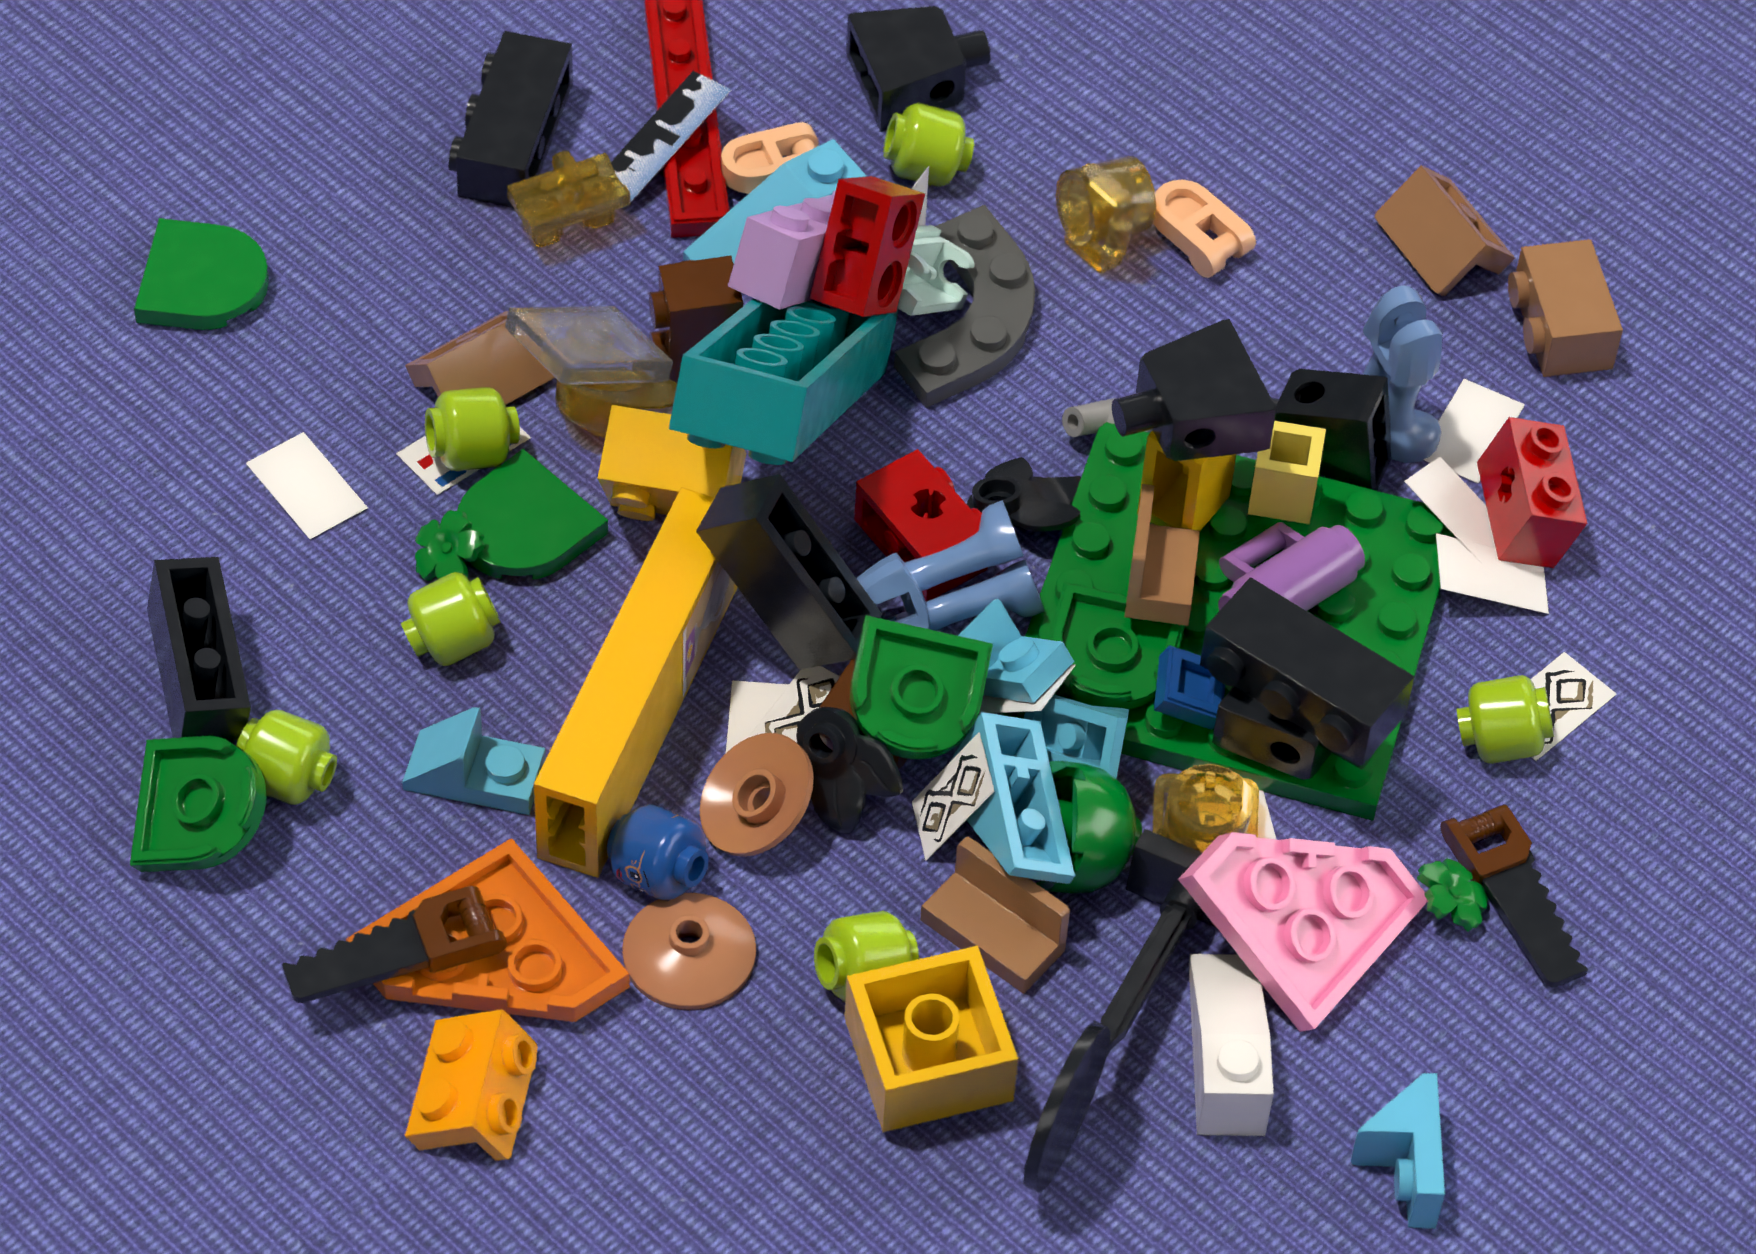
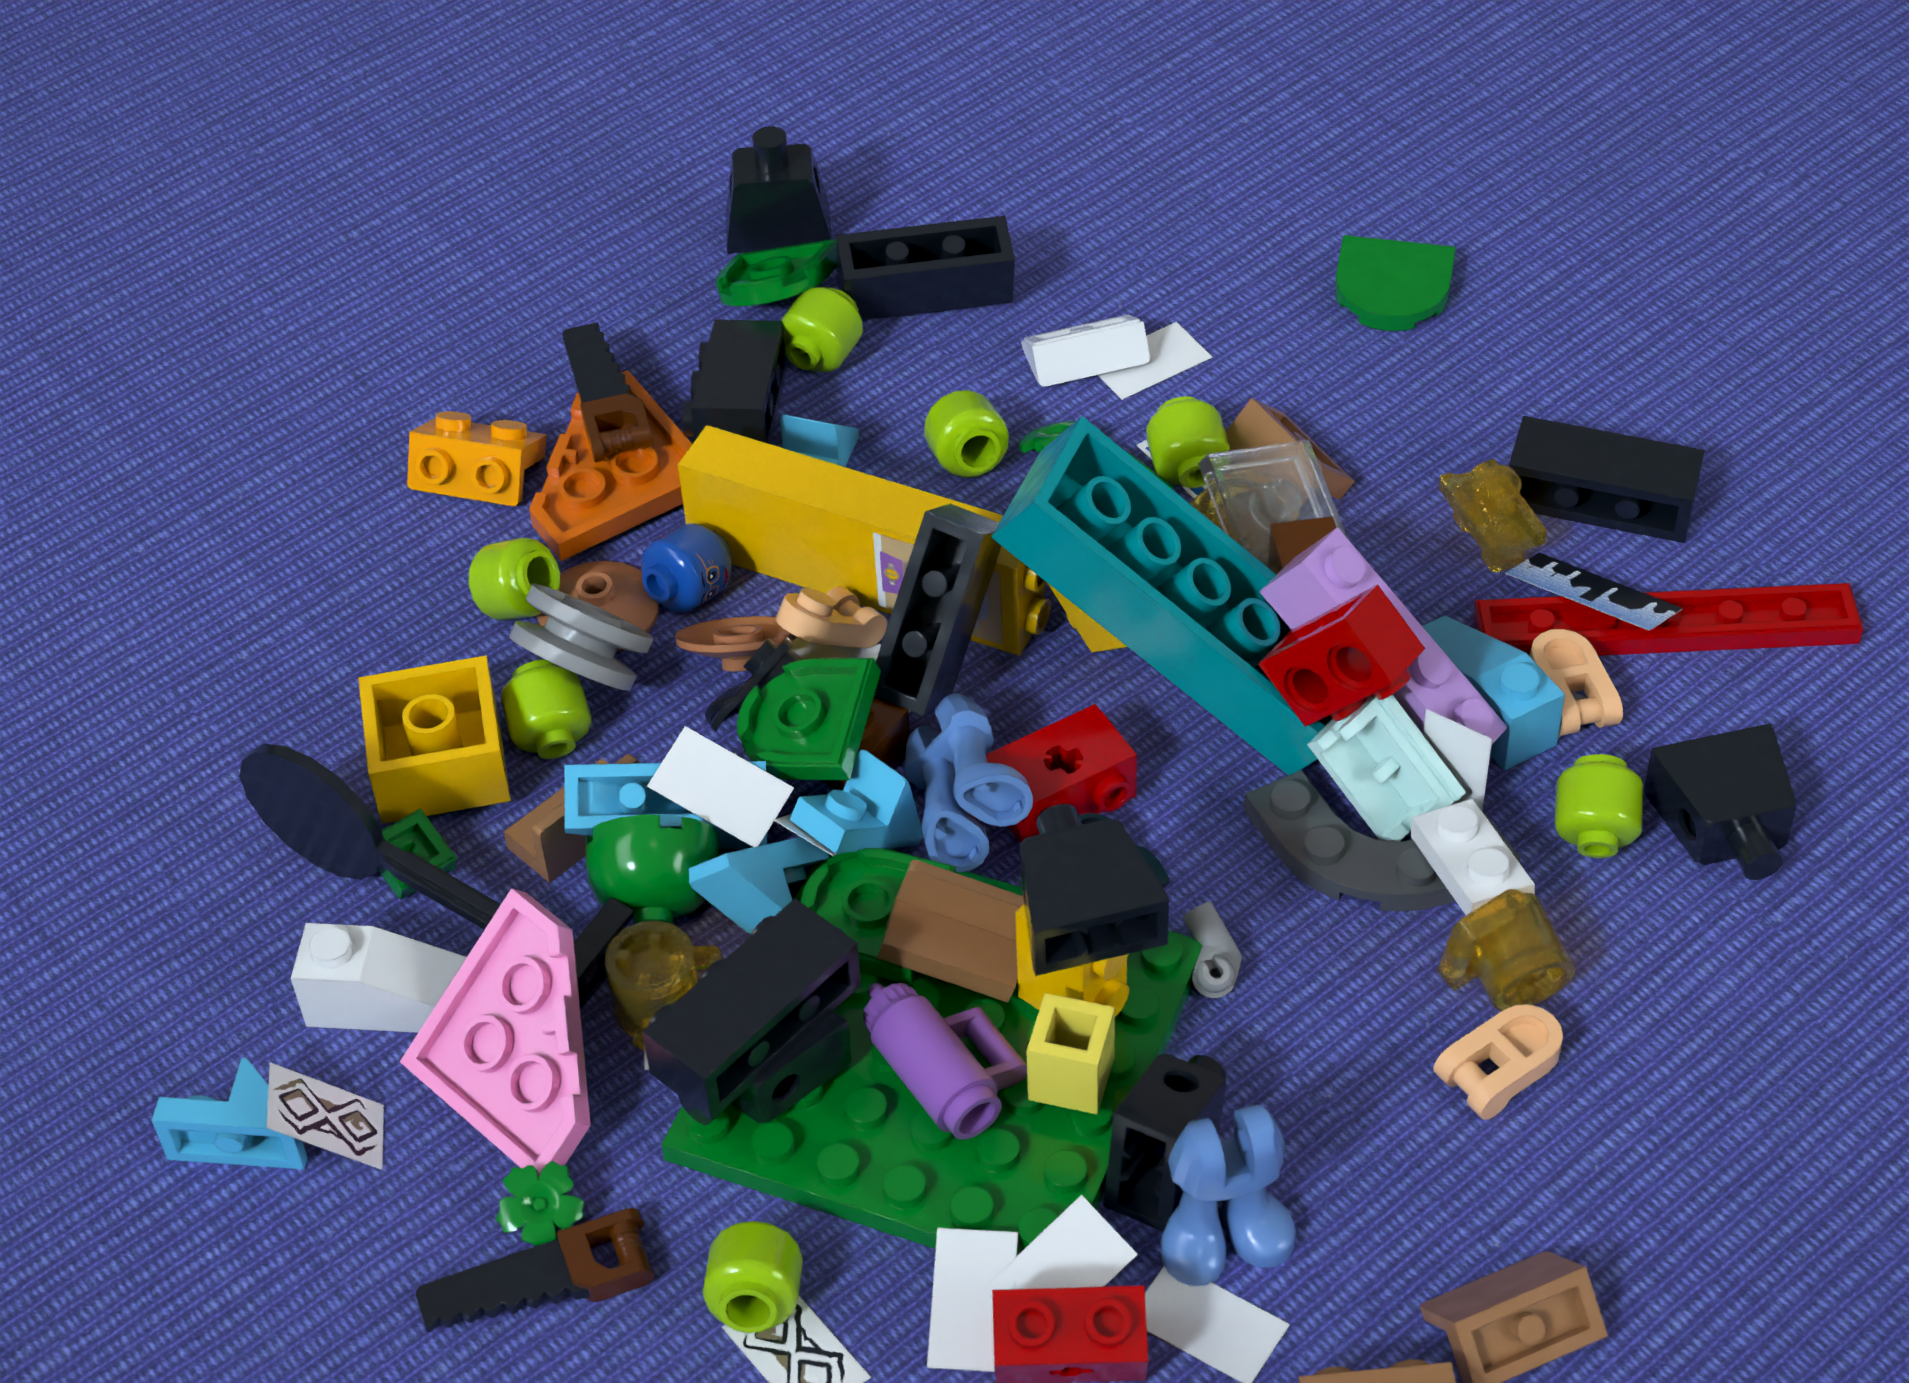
camera: 100 degrees right, 5 degrees down
(60, 794) = (775, 195): none -> black torso
(296, 532) = (1087, 350): none -> white slope
(395, 816) = (738, 380): none -> black brick
(685, 1005) = (504, 573): none -> lime head
(730, 718) = (831, 618): none -> light nougat plate
(797, 909) = (581, 637): none -> light grey wheel
(1014, 748) = (720, 787): none -> white sticker
(1018, 218) = (1468, 854): none -> white plate
(1046, 1052) = (418, 836): none -> green tile
(1401, 1063) = (325, 1116): none -> white sticker

